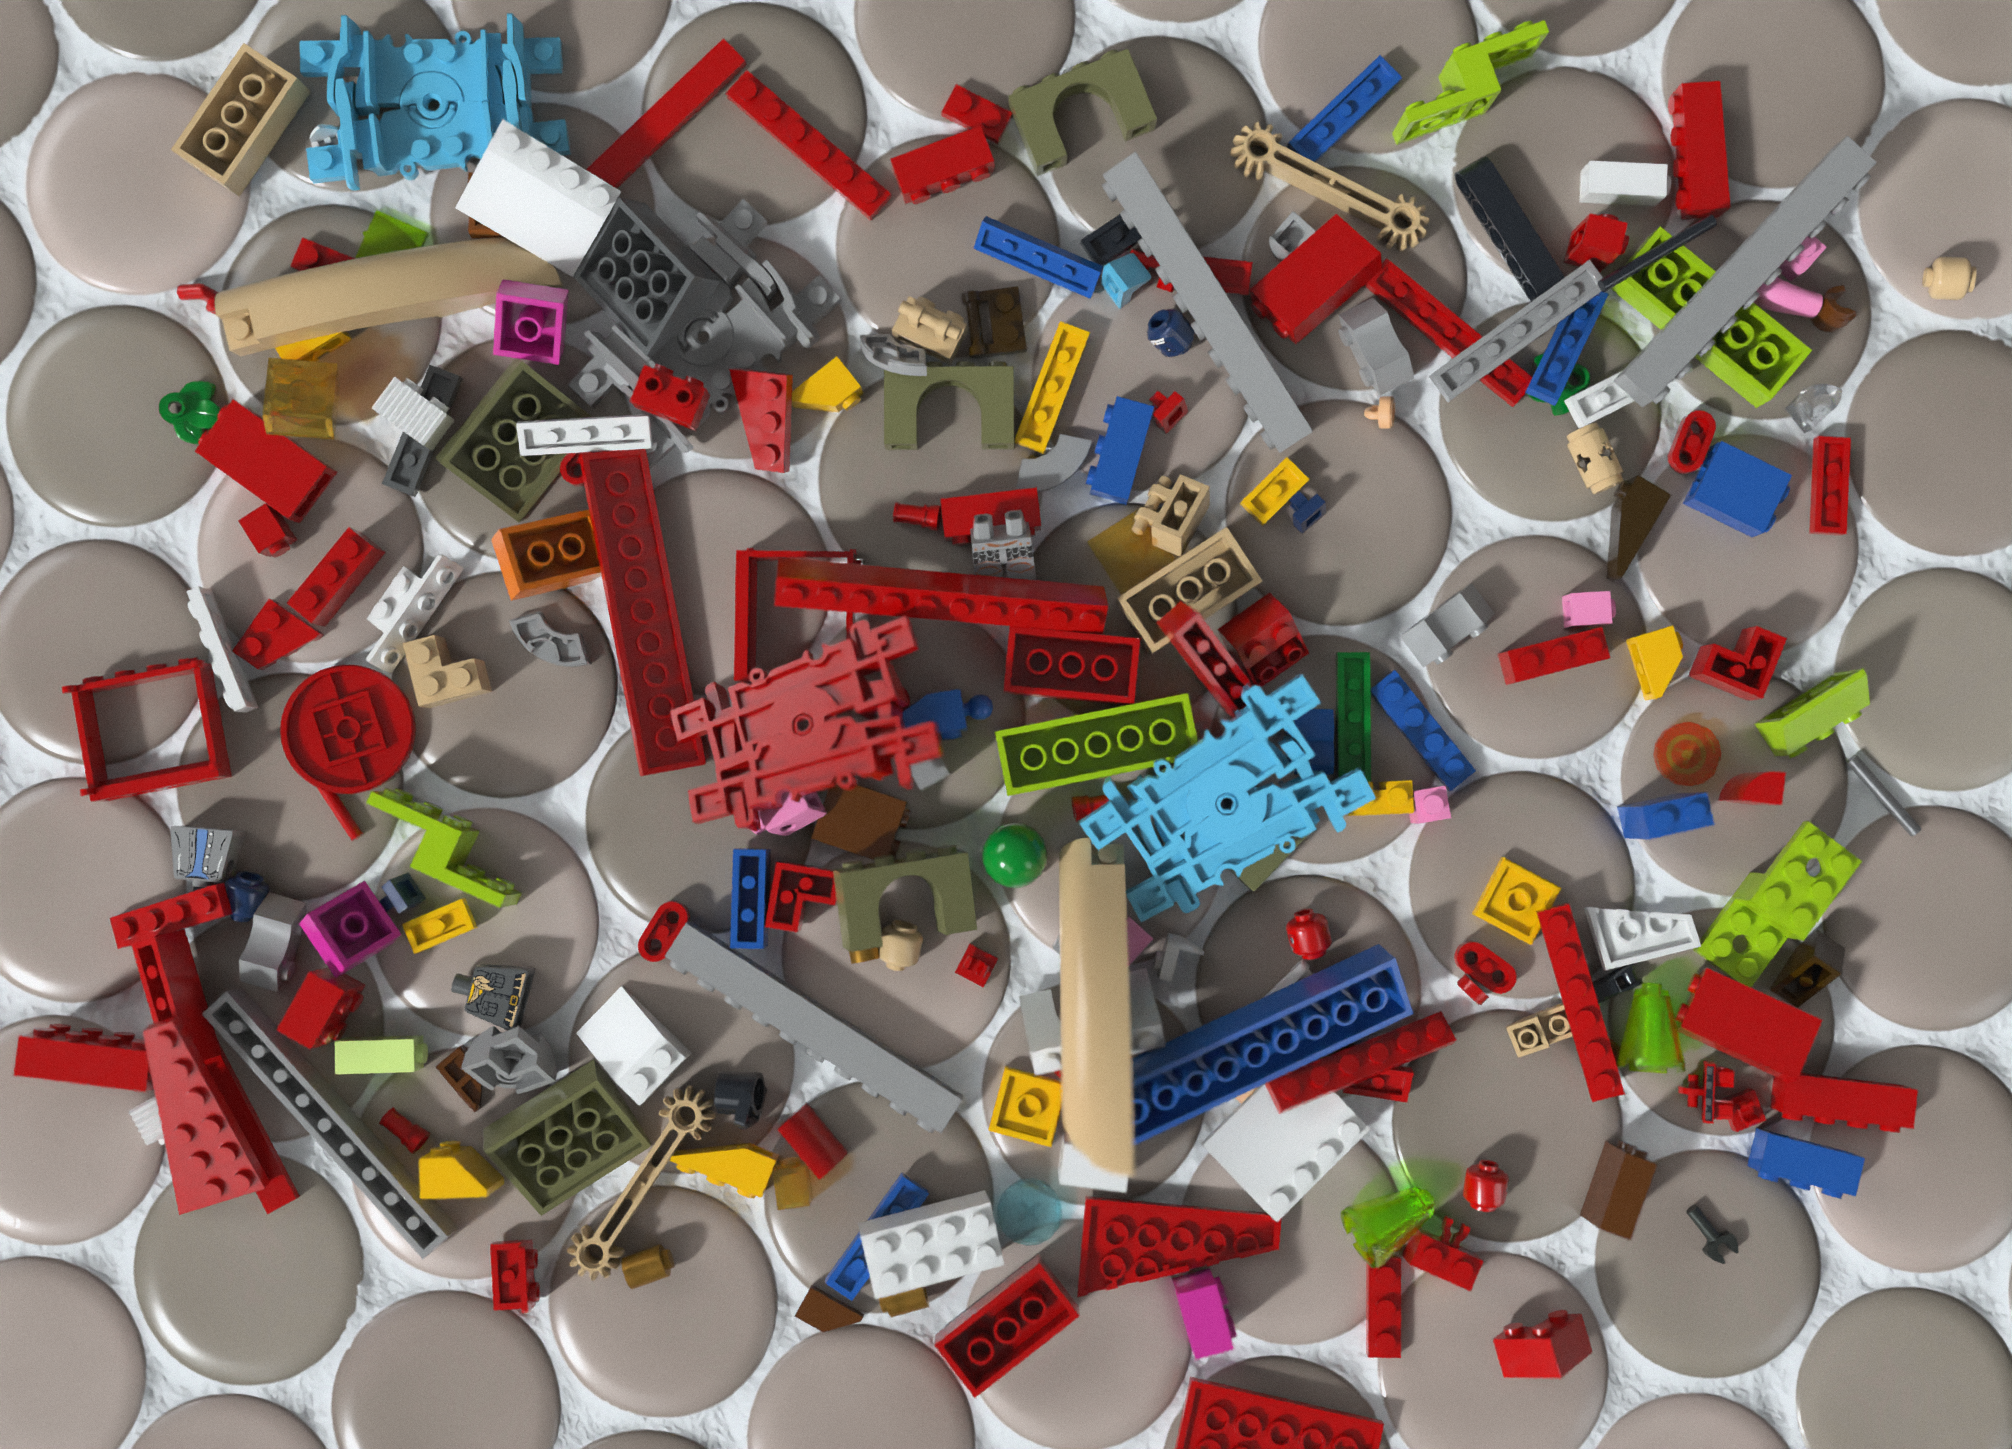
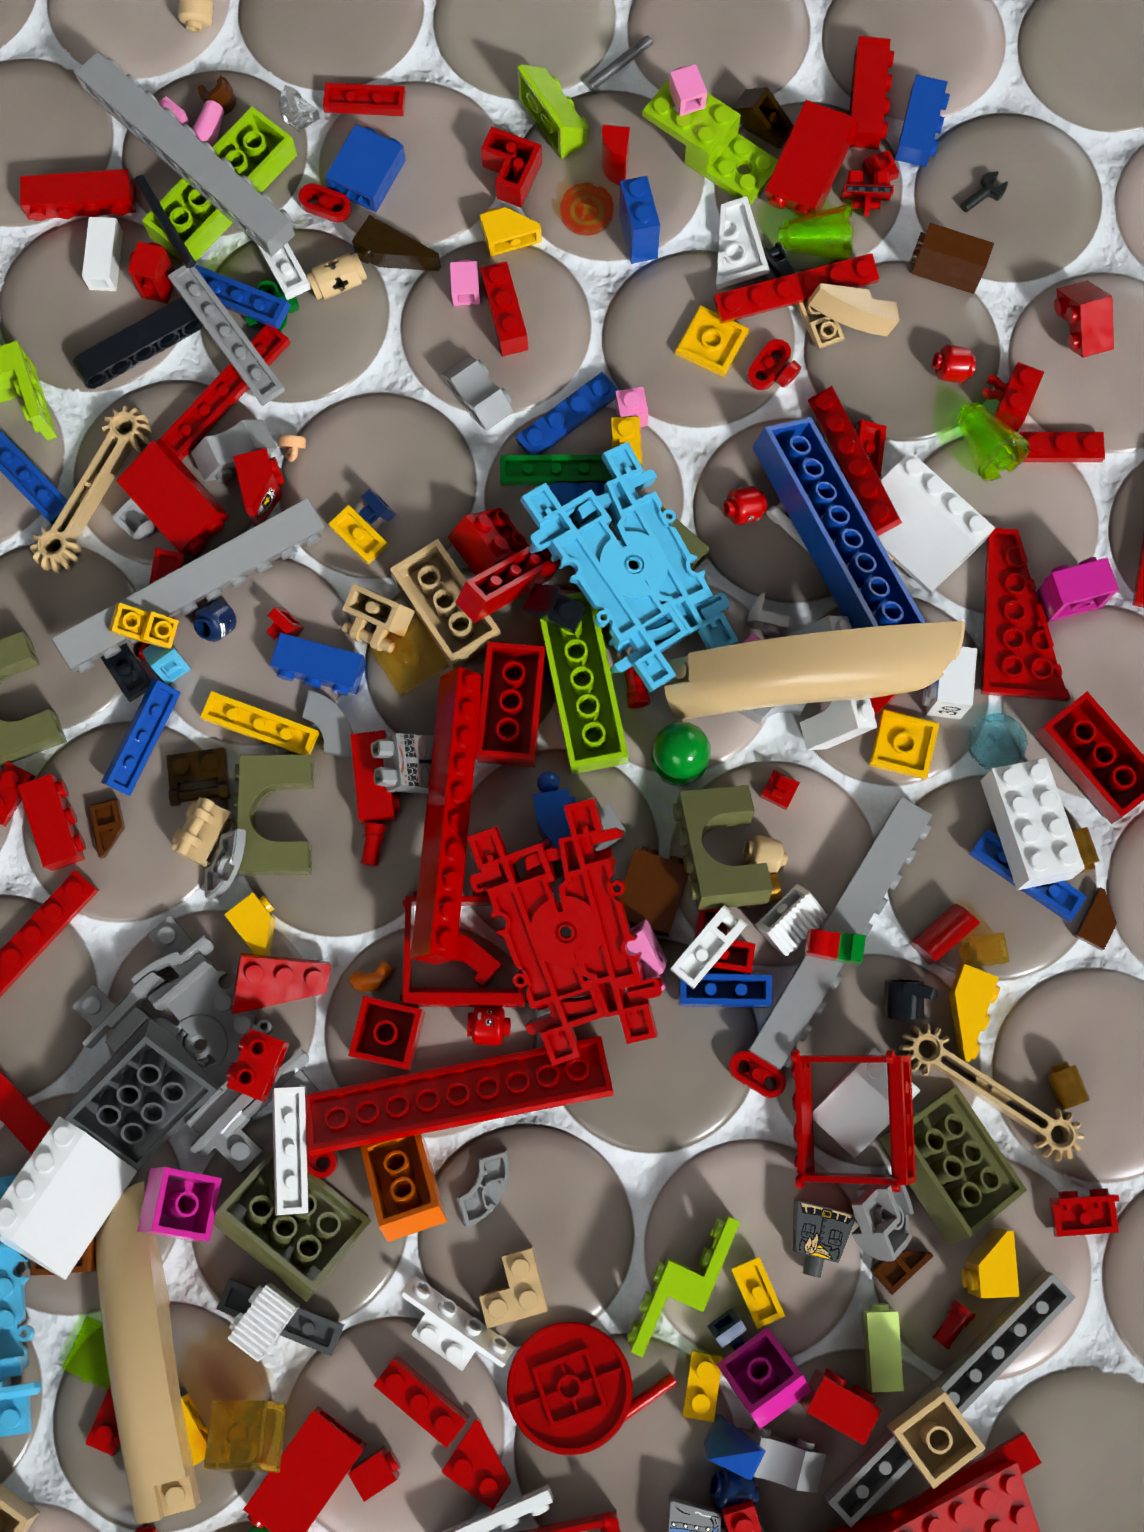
camera: 90 degrees left, 10 degrees down
(281, 1103) = (936, 1437): none -> tan brick
(282, 894) = (732, 1448): none -> blue slope
(348, 866) = (702, 1386): none -> yellow plate
(606, 1082) = (899, 1119): none -> red window
(707, 534) = (387, 1033): none -> red brick
(716, 642) = (488, 1025): none -> red head
(767, 517) = (371, 981): none -> orange arm
(789, 630) = (477, 959): none -> red leg
(790, 880) = (707, 948): none -> white plate
(792, 1019) = (835, 946): none -> leg
(827, 973) = (790, 919): none -> white brick
(941, 225) = (106, 824): none -> reddish brown tile
(1153, 252) = (143, 626): none -> yellow slope
(1178, 713) = (553, 607): none -> black slope
(1330, 376) = (259, 483): none -> red slope
(1552, 1072) = (855, 308): none -> tan slope
(1831, 875) = (687, 89): none -> bright pink brick

